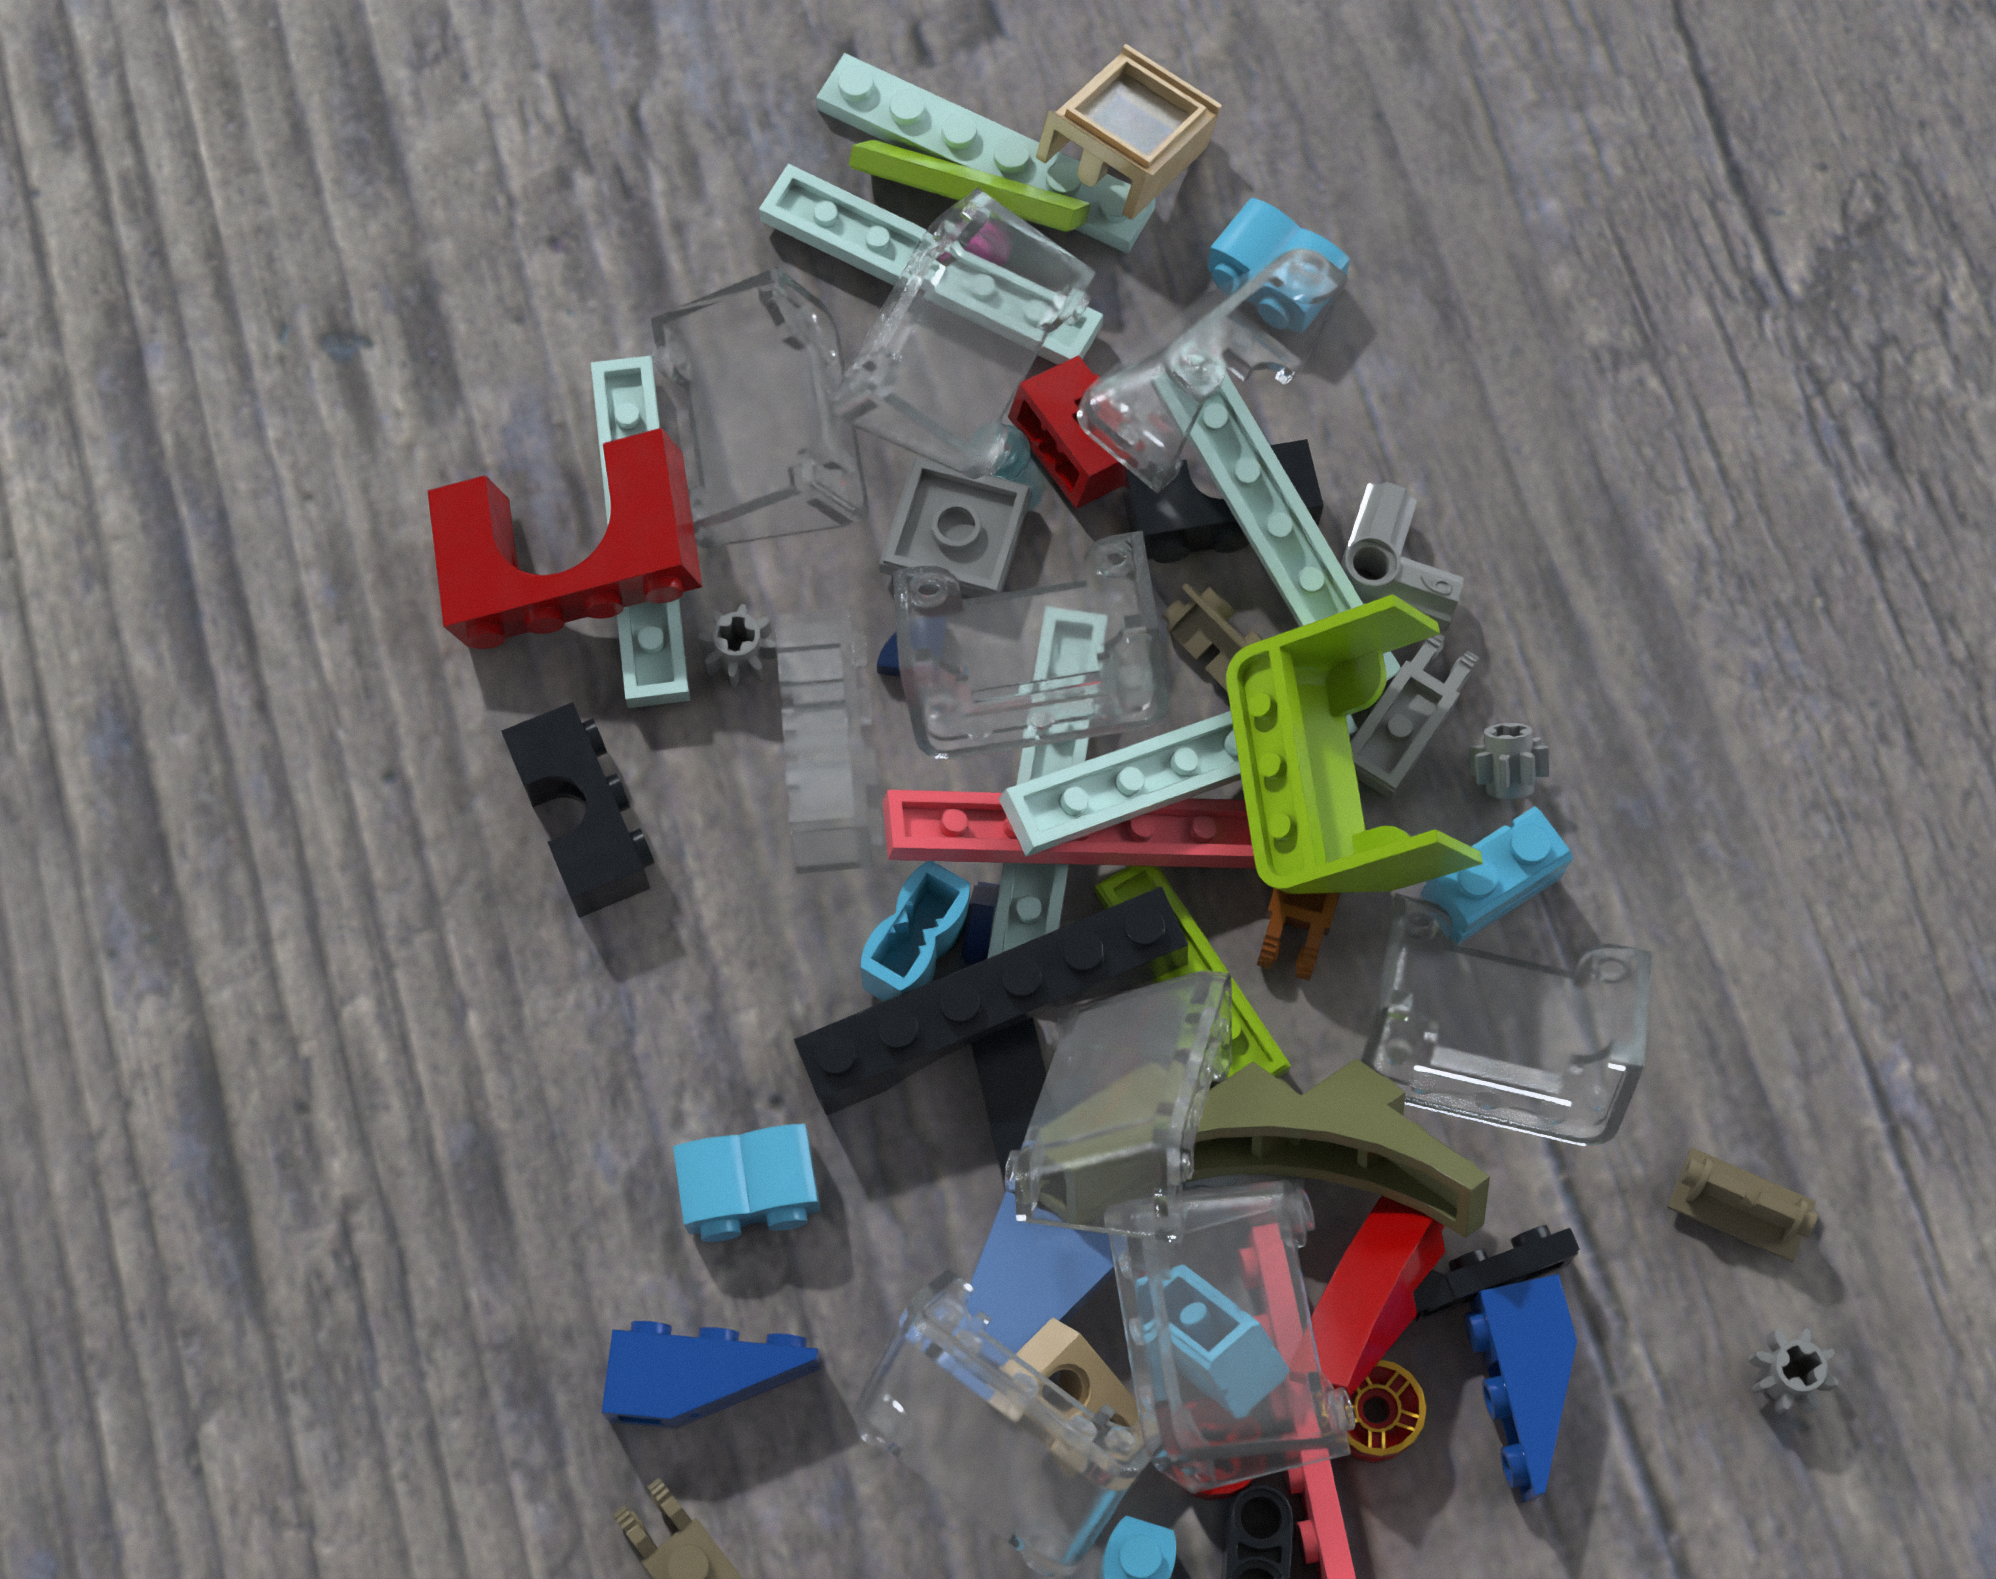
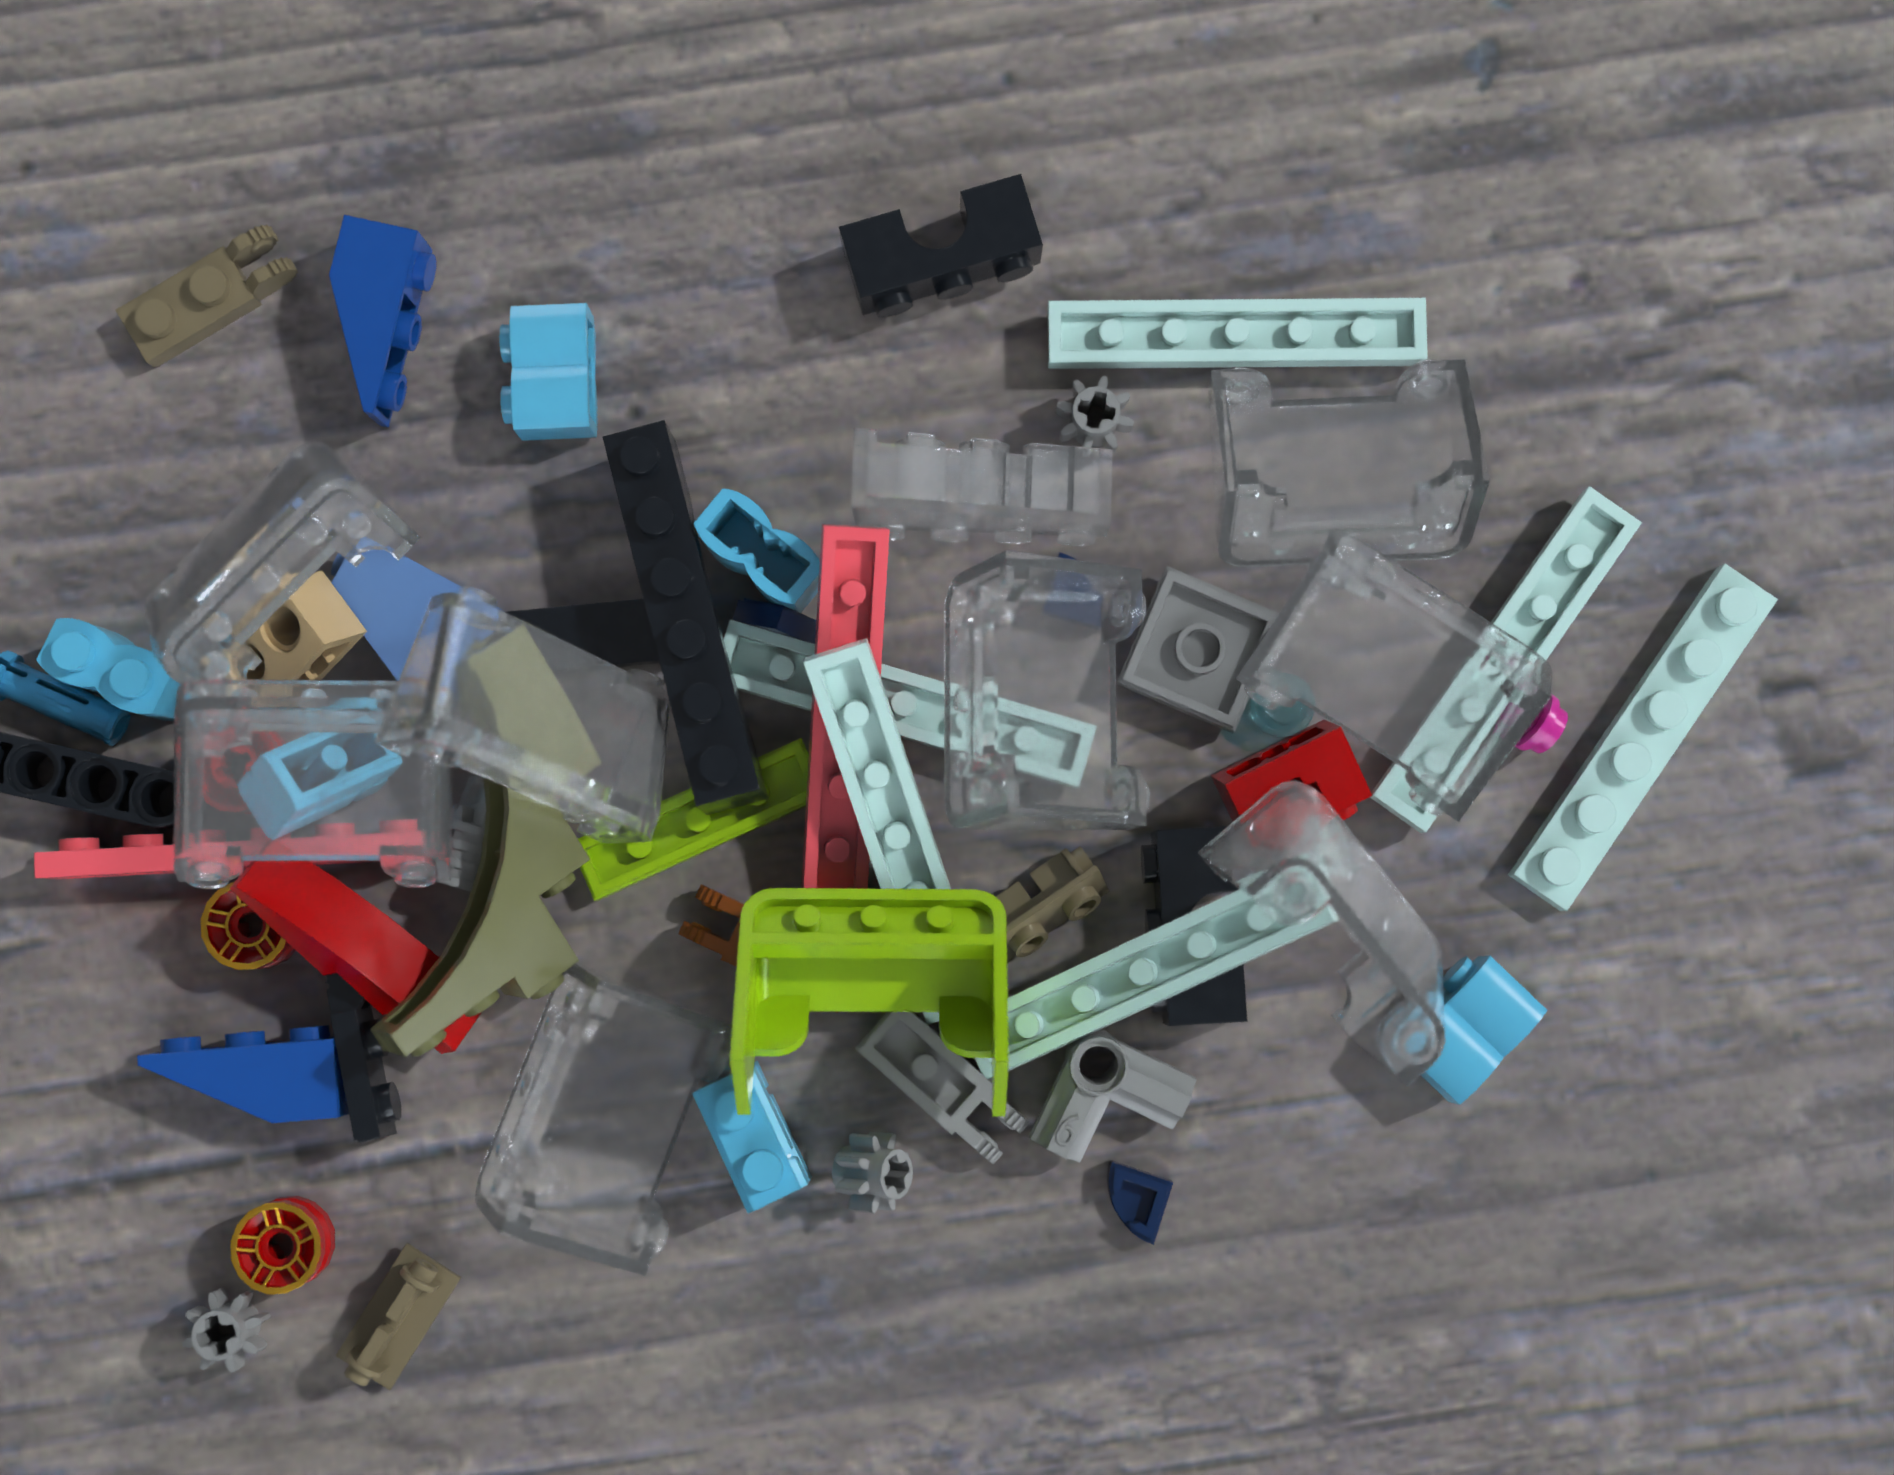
camera: 100 degrees right, 15 degrees up
(641, 559) = (1191, 324): red arch -> none
(958, 181) = (1594, 710): lime tile -> none
(1136, 122) = (1647, 893): tan window -> none
(1486, 531) = (1138, 1198): none -> dark blue tile
(1713, 1308) = (263, 1262): none -> red wheel

